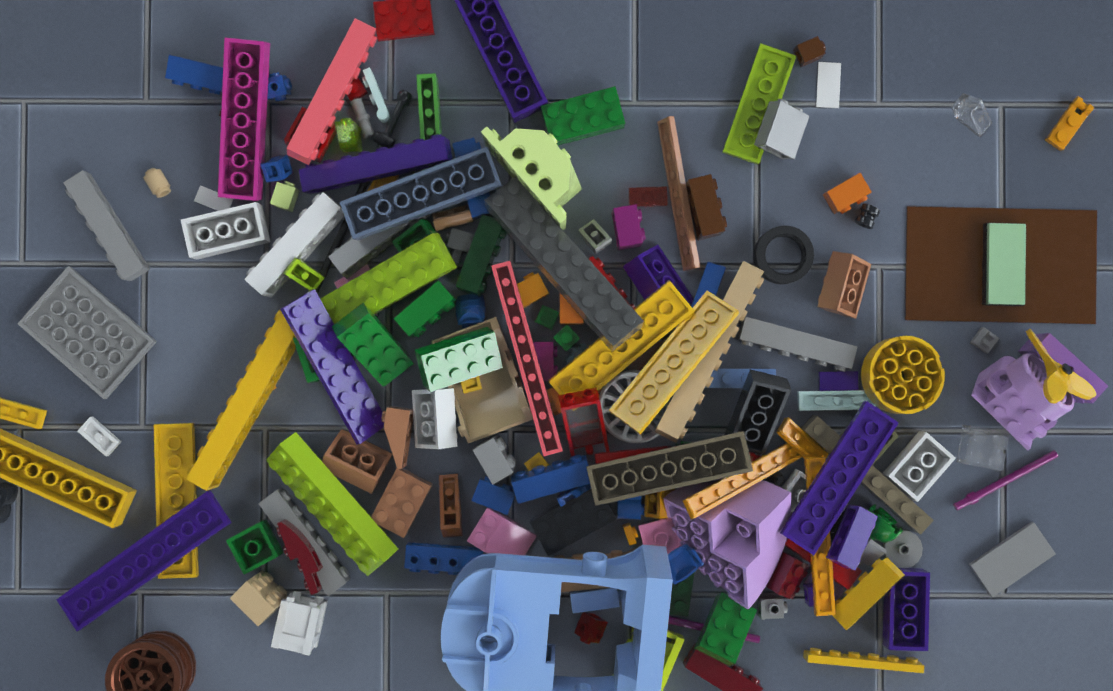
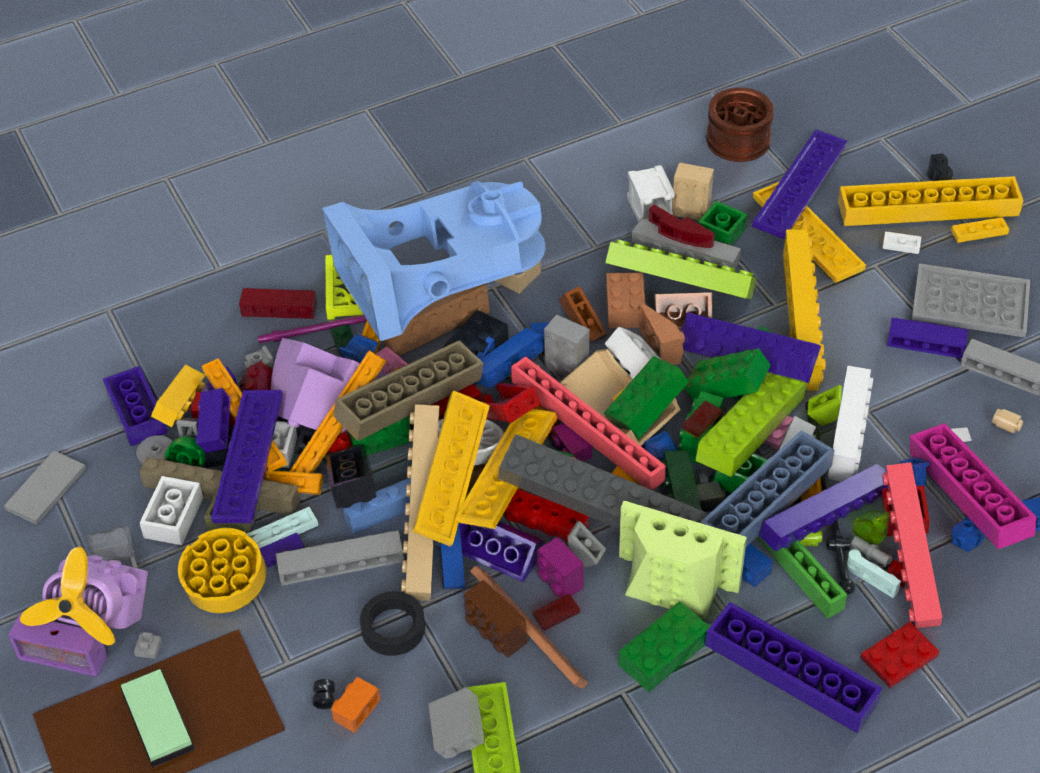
camera: 150 degrees right, 40 degrees down
(158, 309) = (927, 337): none -> dark purple brick
(225, 230) = (918, 408): white brick -> none
(285, 196) = (889, 455): yellowish green brick -> none
(428, 301) = (701, 419): none -> clear red plate
(438, 557) = (555, 283): blue brick -> none
(500, 534) = (526, 309): bright pink slope -> none
(630, 533) = (413, 355): light orange plate -> none
(725, 629) = (293, 319): green brick -> none
(844, 284) = (317, 624): nougat slope -> none
(872, 660) = (162, 357): yellow plate -> none
(973, 498) = (103, 516): magenta bar -> none

